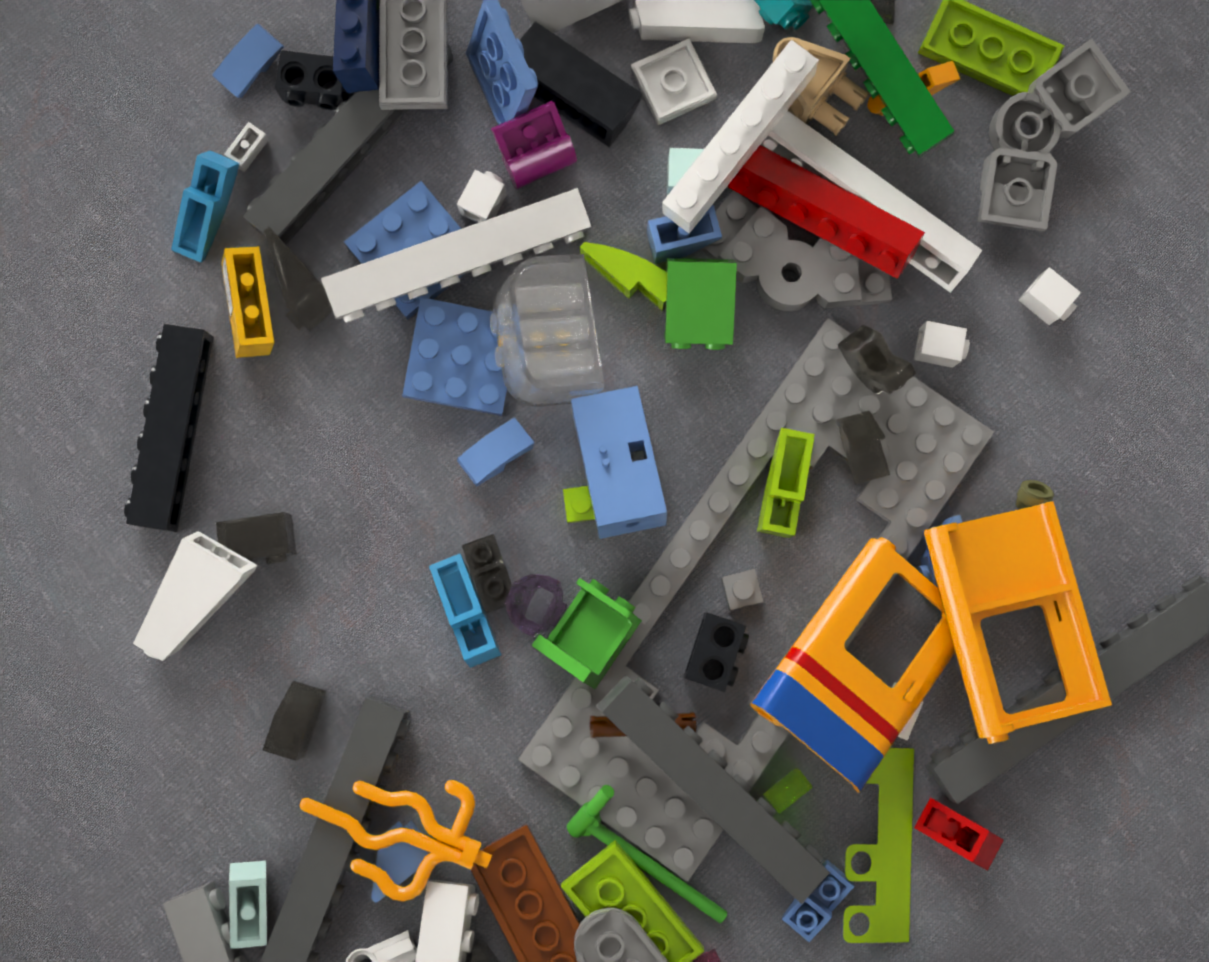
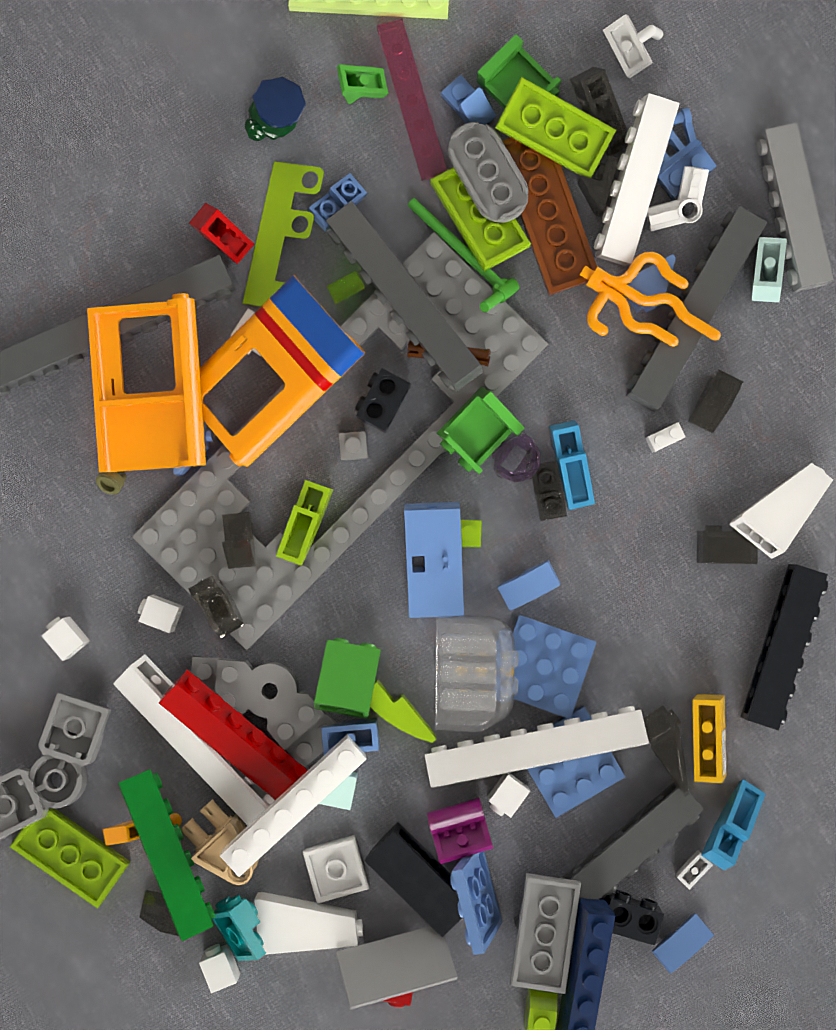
camera: 170 degrees left, 5 degrees up
(352, 664) = (665, 437): none -> white piece

